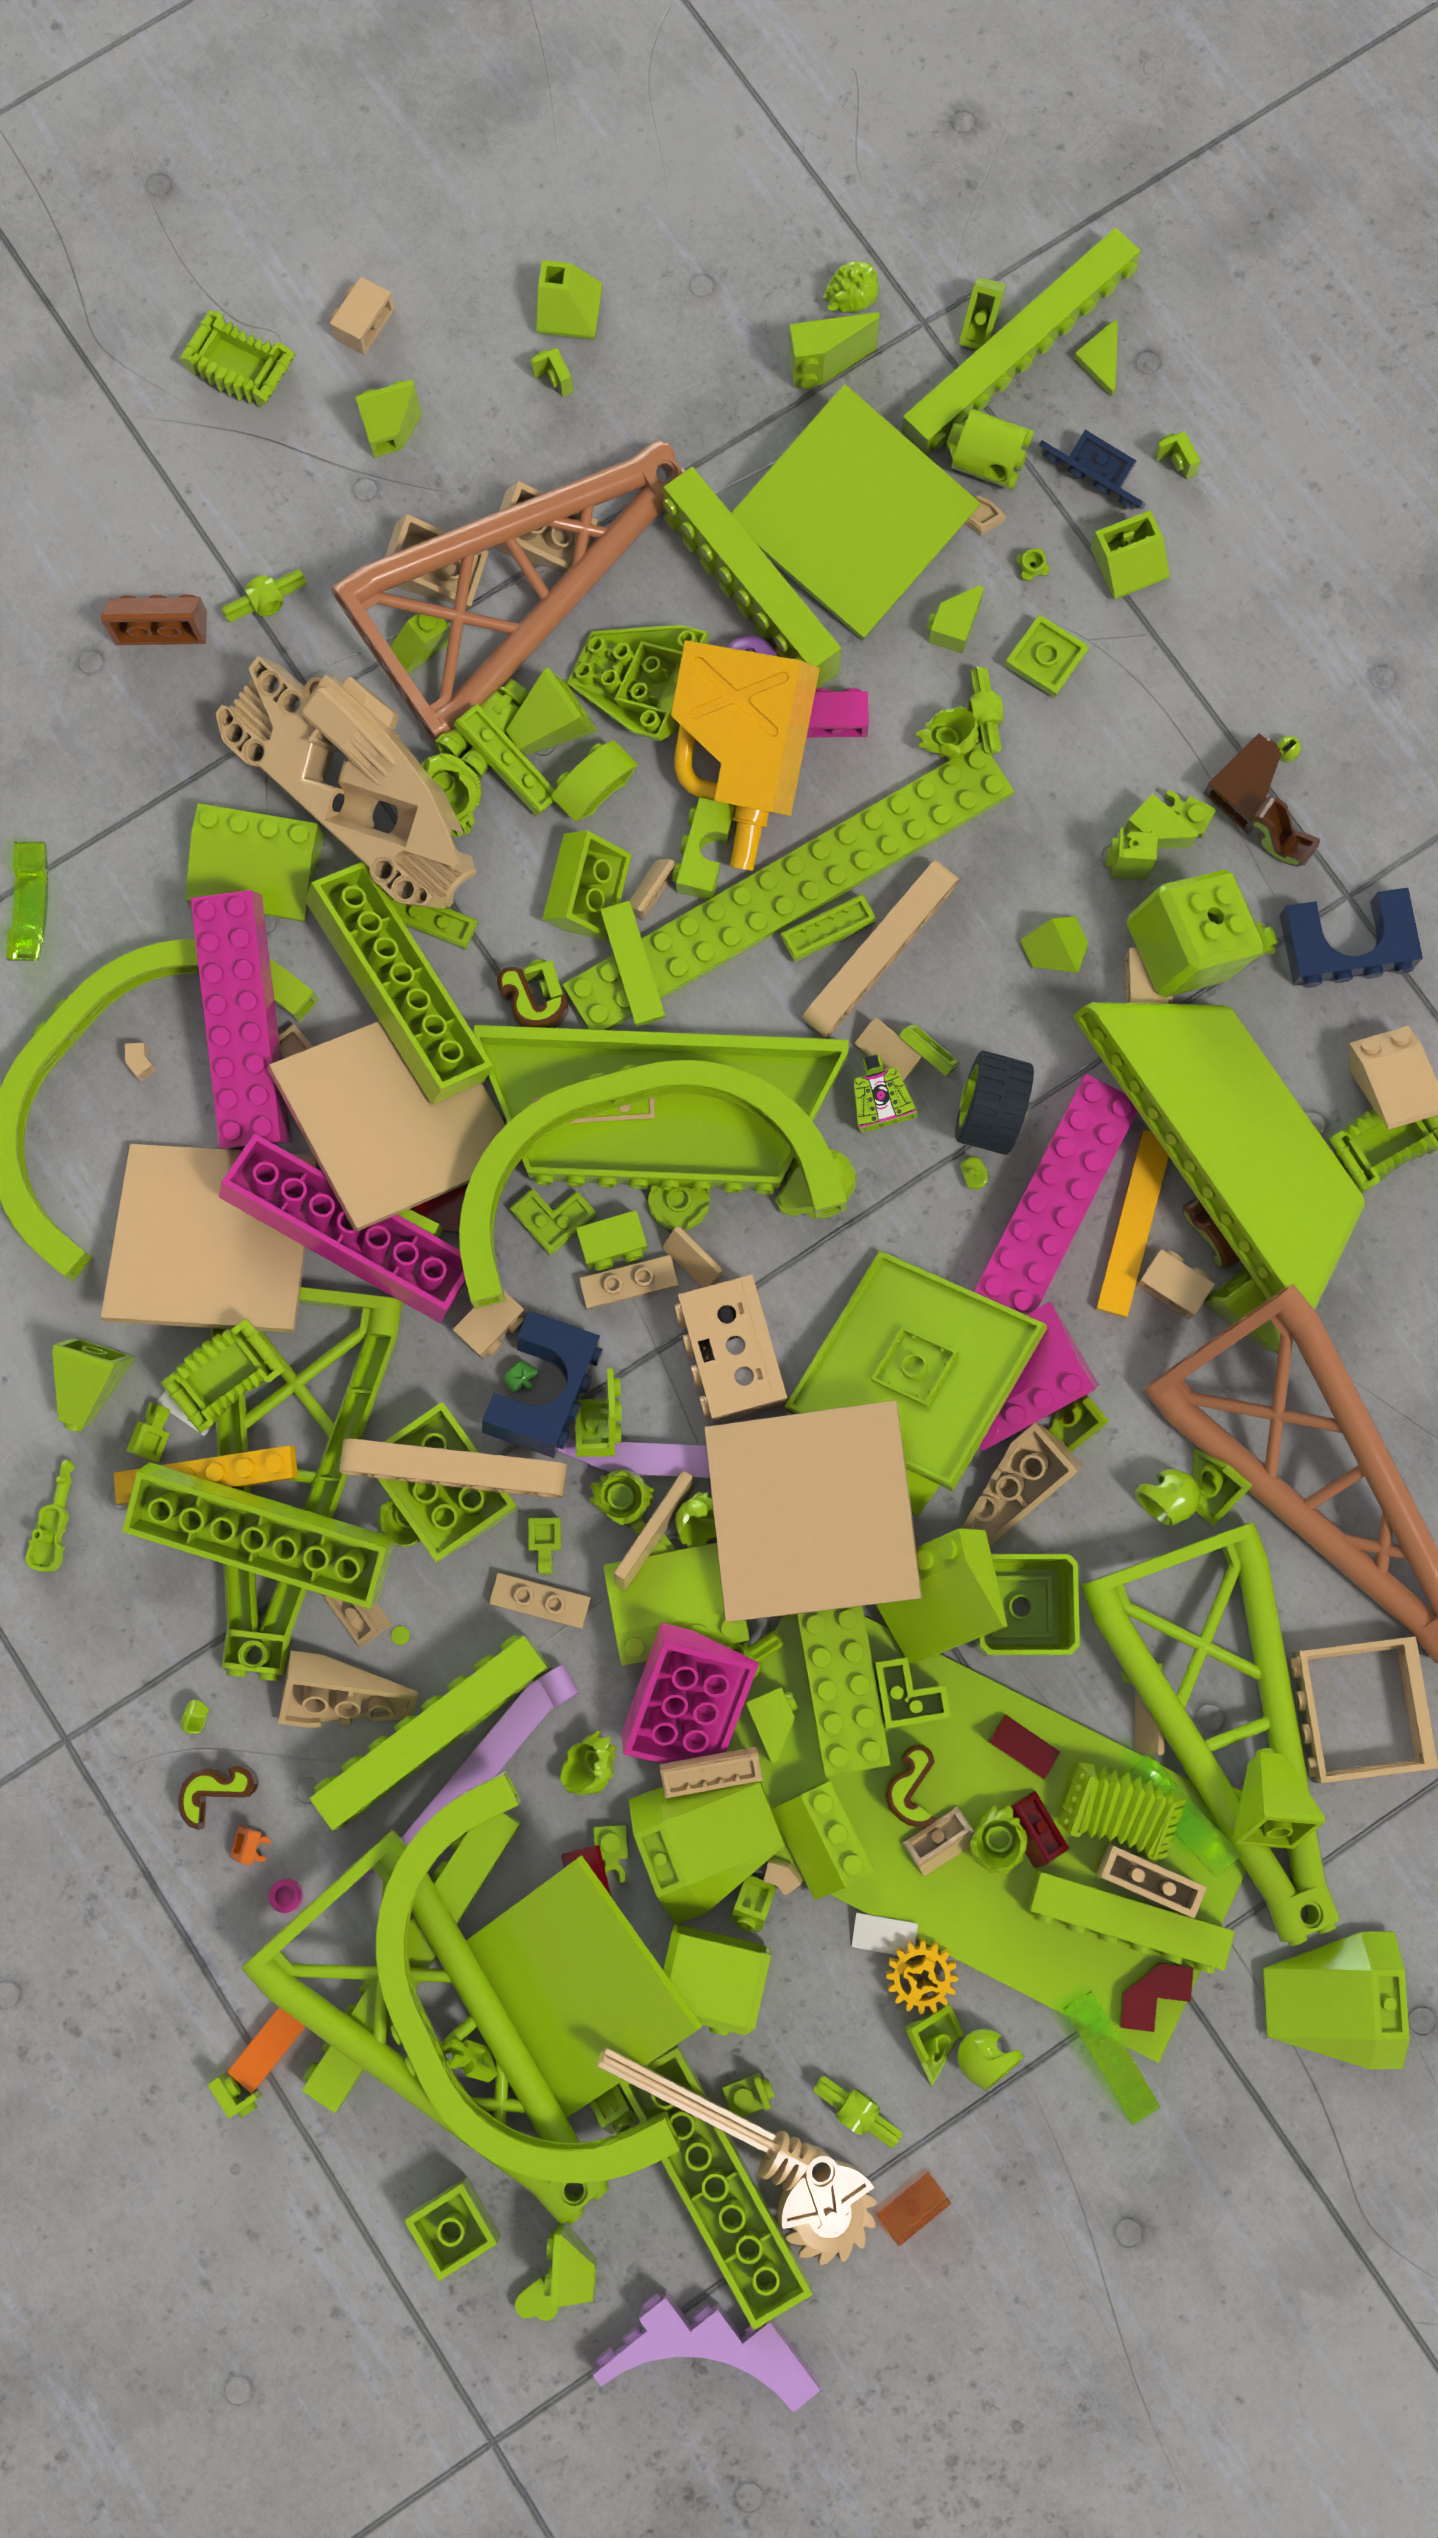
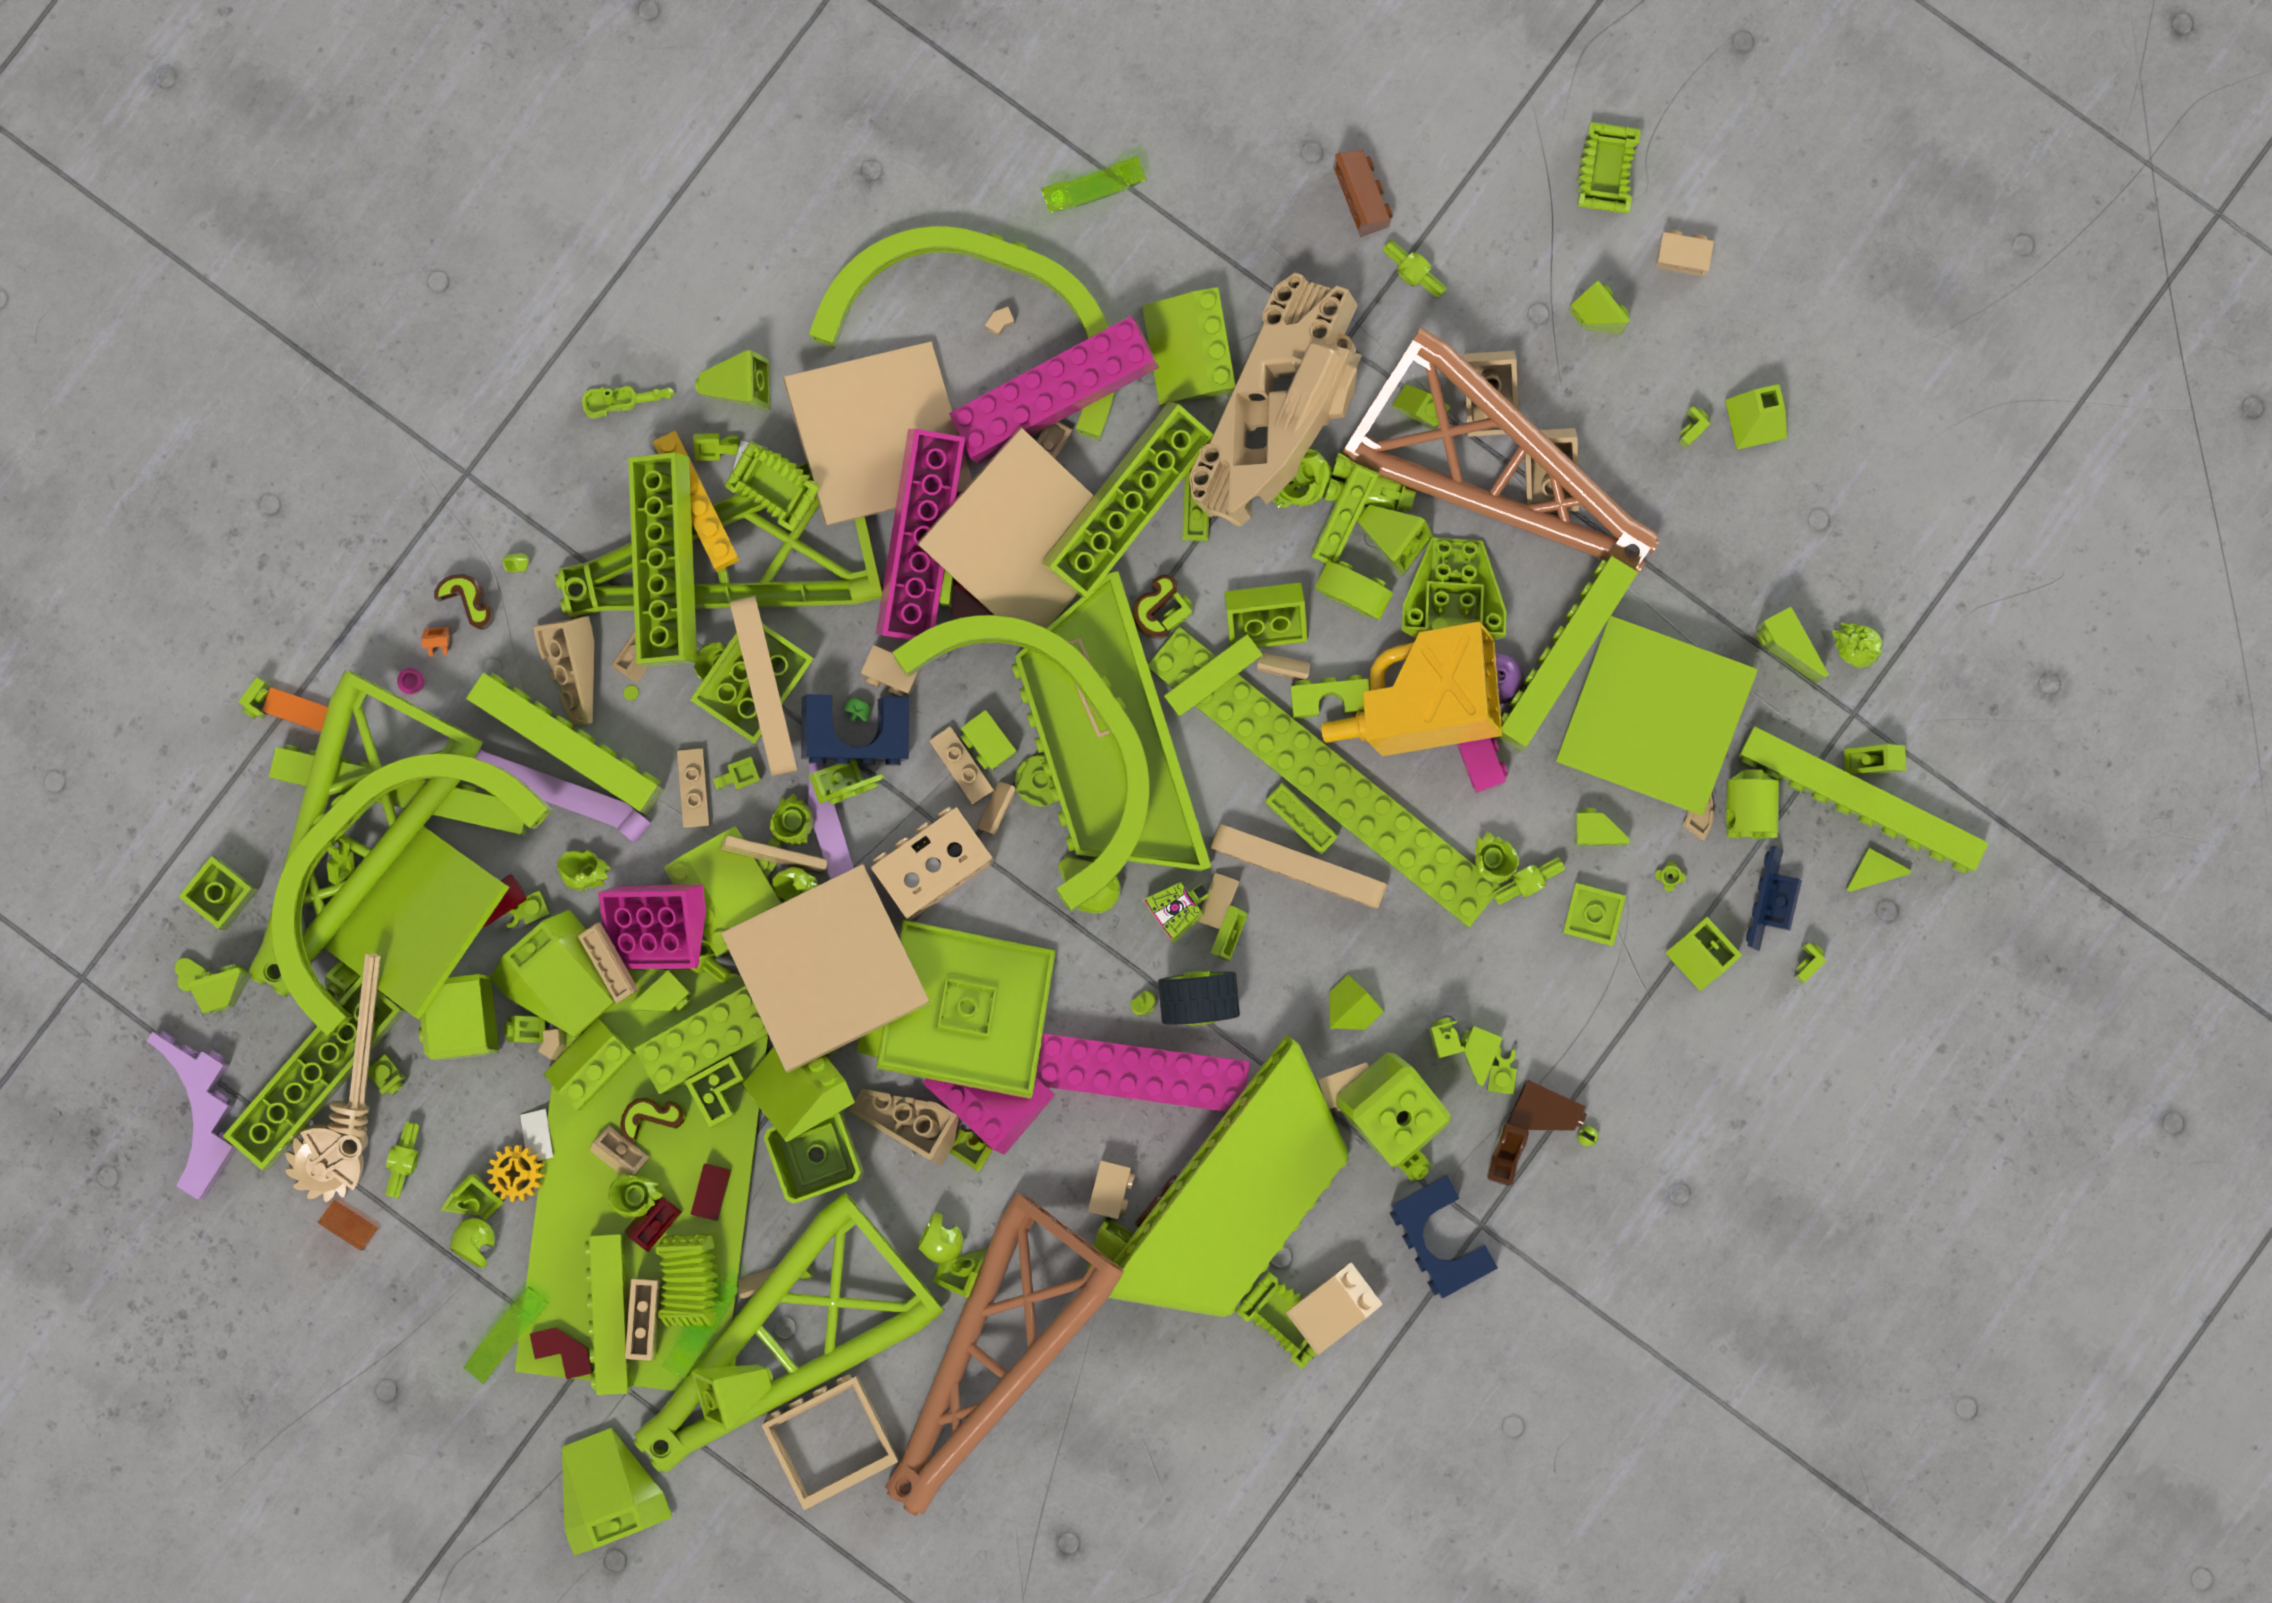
camera: 70 degrees right, 5 degrees up
(550, 1226) = (983, 688): lime tile -> none
(1133, 1227) = (1138, 1142): yellow tile -> none

